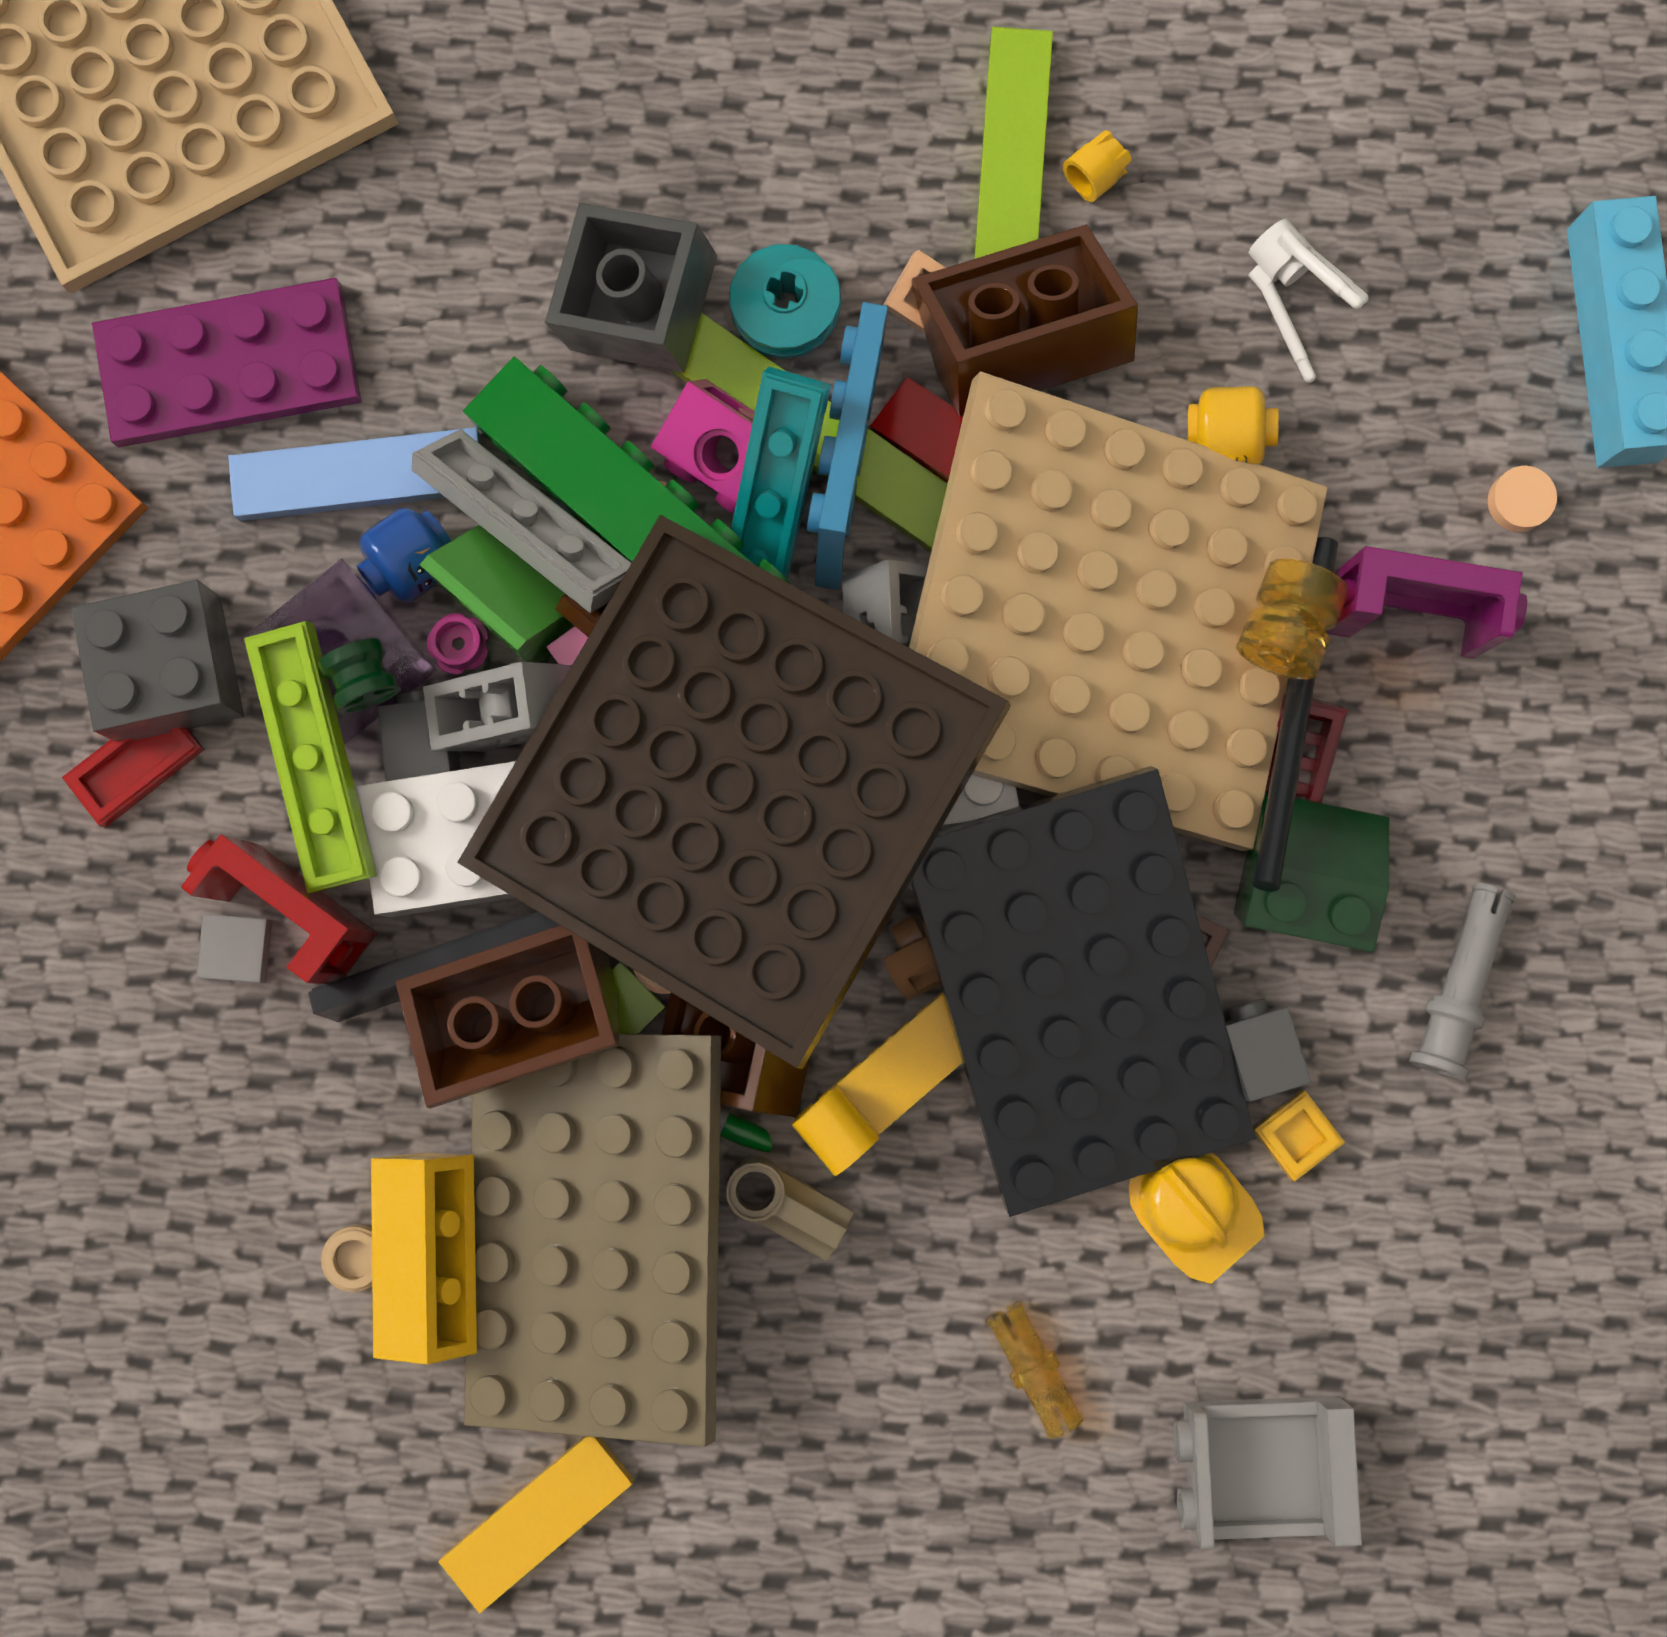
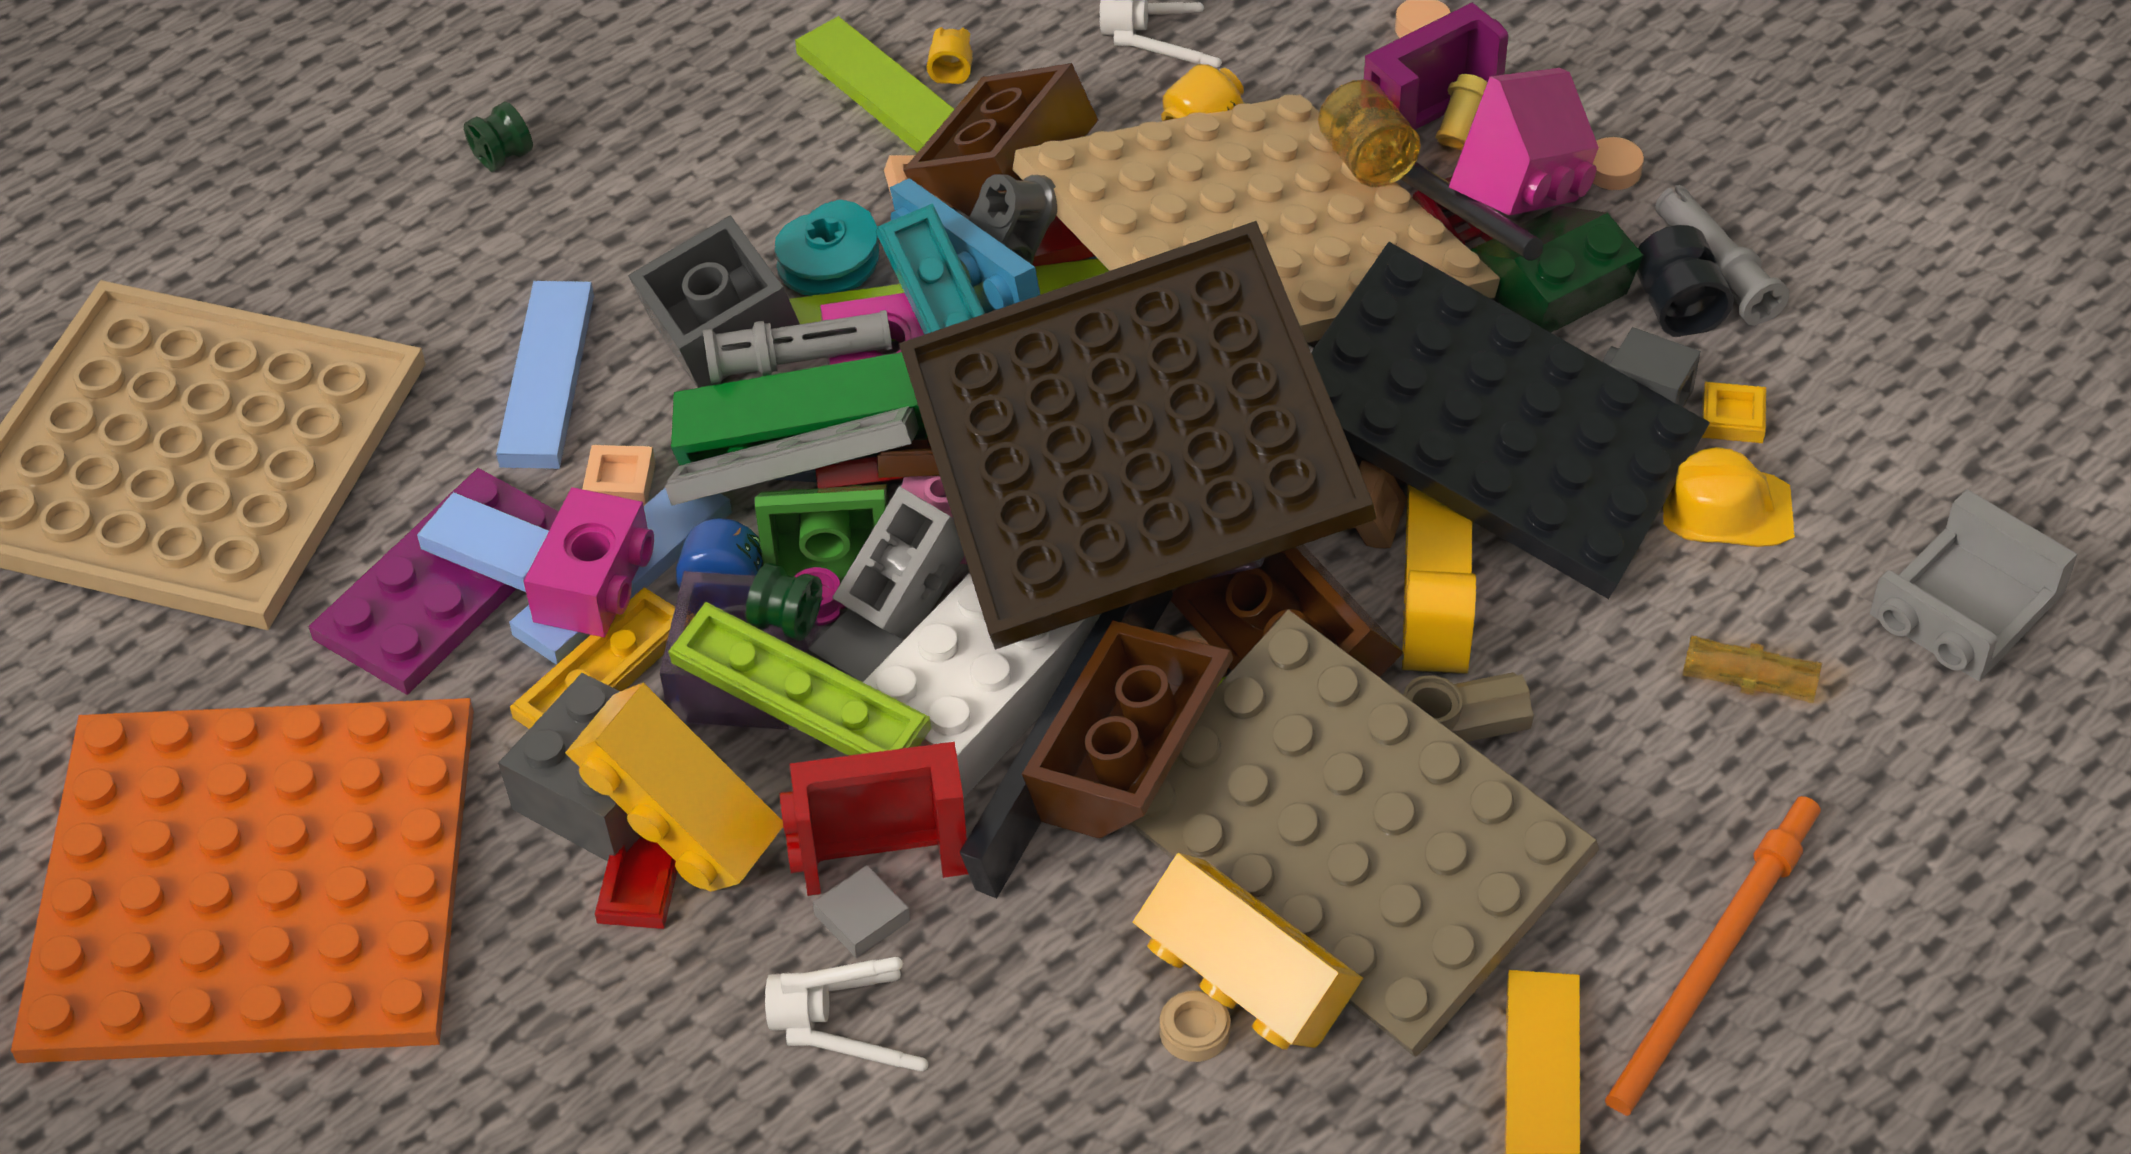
camera: 45 degrees left, 35 degrees down
(118, 993) = (802, 999): none -> white plant
(152, 755) = (674, 789): none -> yellow brick
(260, 374) = (483, 540): none -> light blue tile
(261, 554) = (625, 653): none -> yellow tile
(272, 464) = (588, 562): none -> dark pink brick
(425, 386) = (620, 471): none -> light nougat plate
(475, 220) = (545, 375): none -> light blue tile
(607, 388) = (766, 348): none -> light grey pin
(873, 1529) = (1774, 858): none -> orange bar
(912, 437) = (1009, 214): none -> dark grey piece
(1394, 989) = (1683, 281): none -> black wheel
(1399, 767) = (1527, 144): none -> dark pink slope
(1430, 641) = (1461, 110): none -> light yellow pin
(1497, 804) = (1617, 163): none -> light nougat tile

